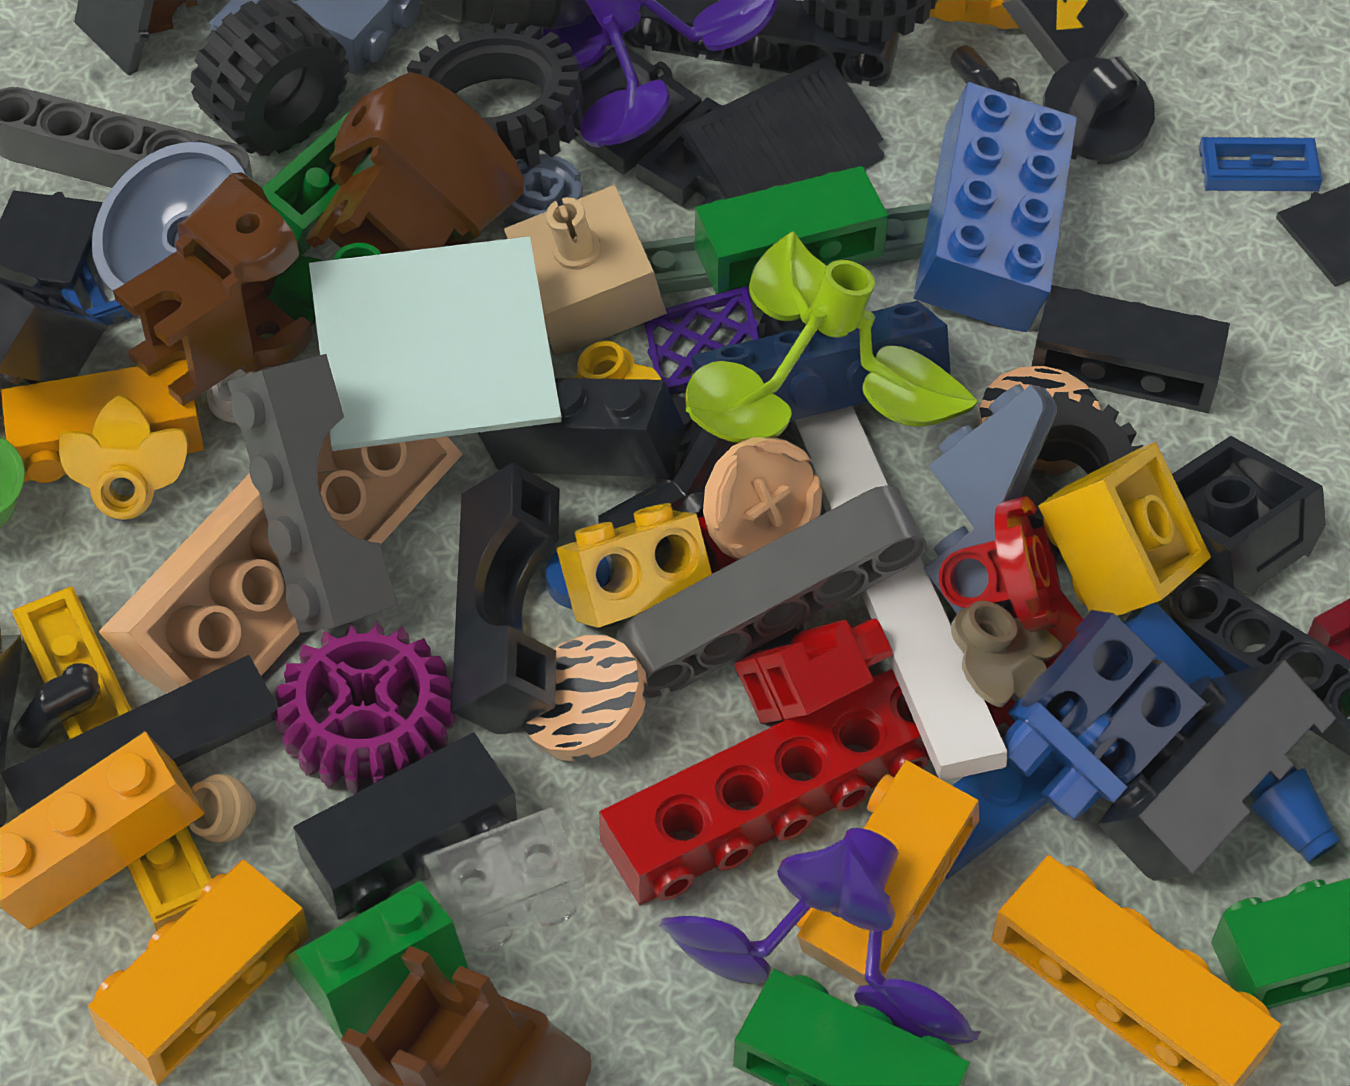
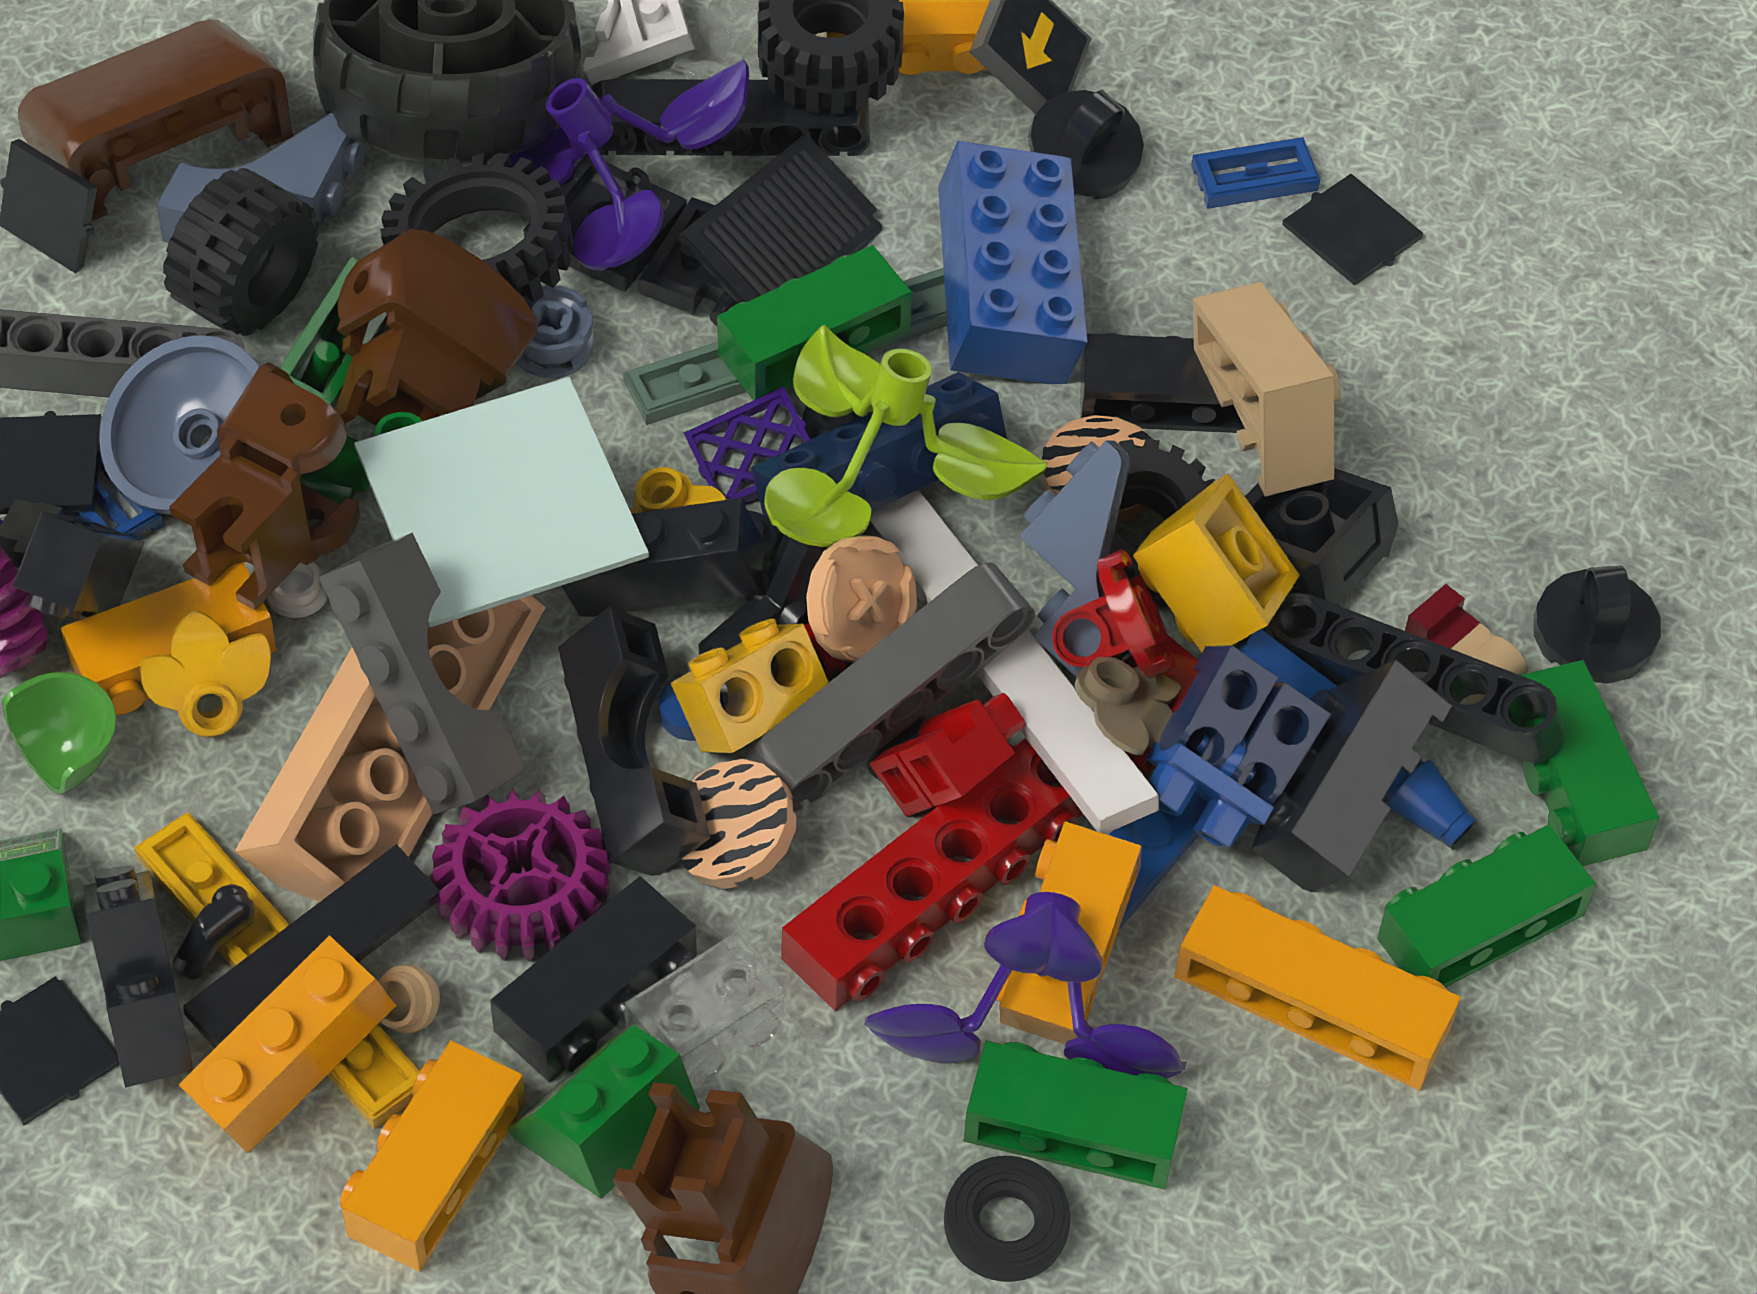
camera: 15 degrees left, 0 degrees up
(590, 270) = (630, 393): tan brick -> none
(975, 70) = (959, 127): black arm -> none
(1226, 364) = (1273, 381): none -> tan wedge

